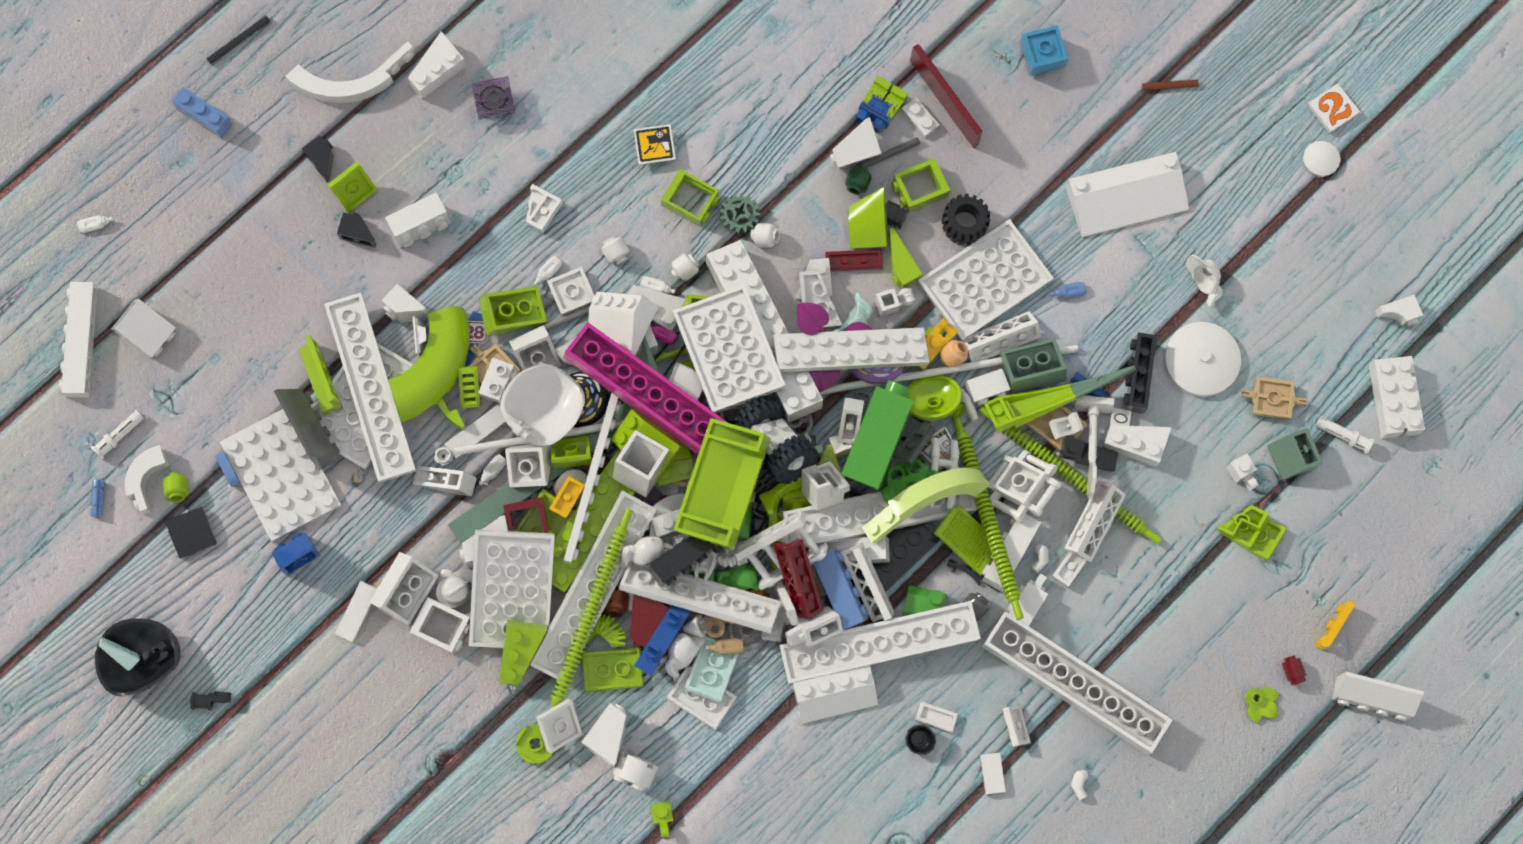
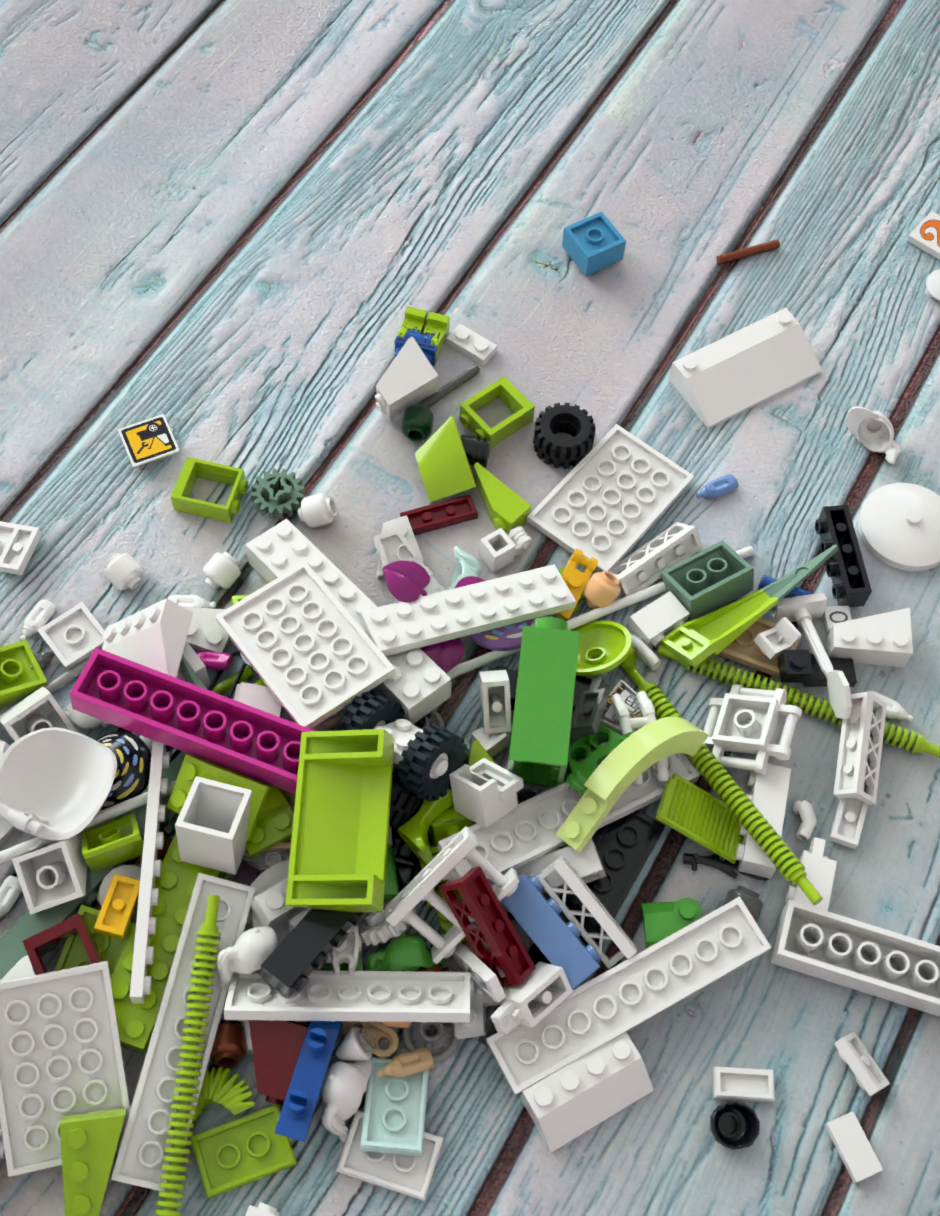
camera: 15 degrees left, 15 degrees down
(946, 95) = (496, 310): dark red tile -> none
(1132, 495) = (894, 709): none -> white piece

